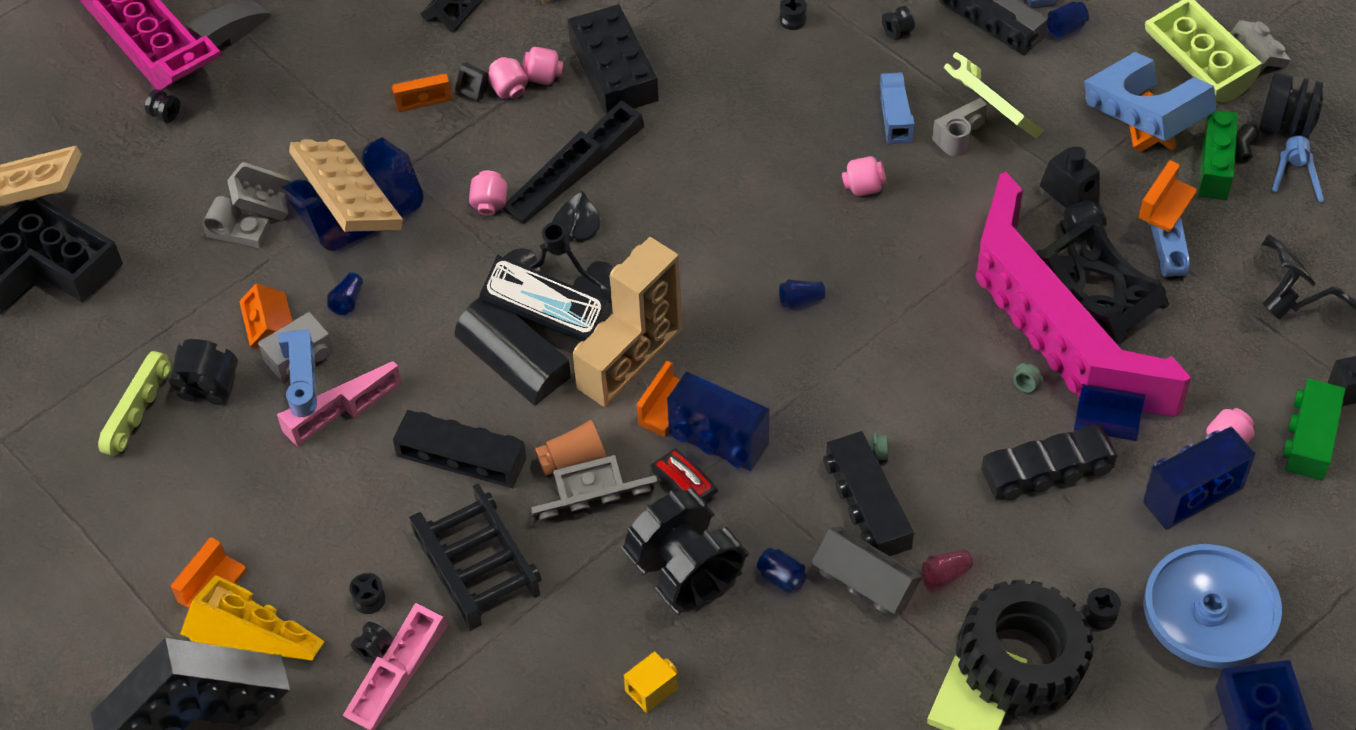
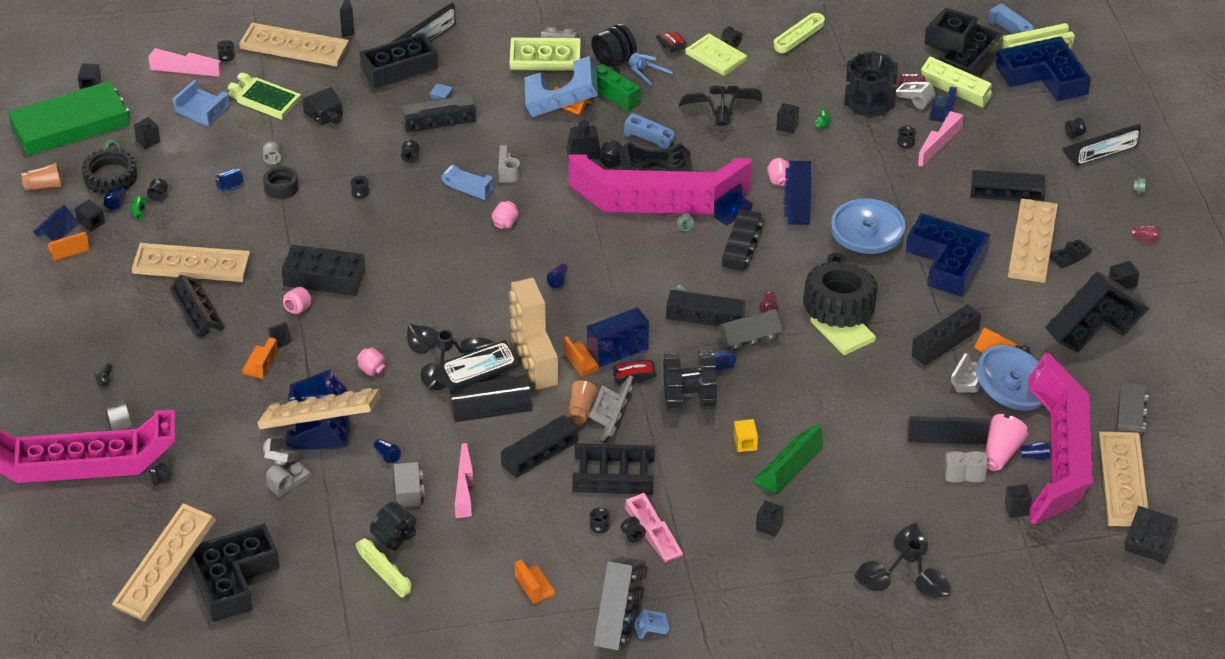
camera: 60 degrees left, 10 degrees down
(230, 618) = (574, 580): yellow wedge -> none
(264, 312) = (369, 491): orange panel -> none
(299, 349) = (439, 478): medium blue leg -> none
(507, 78) = (293, 316): bright pink head -> none
(575, 161) = (380, 319): black slope -> none
(971, 77) = (493, 142): yellowish green tile -> none
(1067, 18) = (473, 88): clear blue brick -> none
(1166, 199) = (632, 114): orange panel -> none
(1313, 428) = (802, 144): green brick -> none

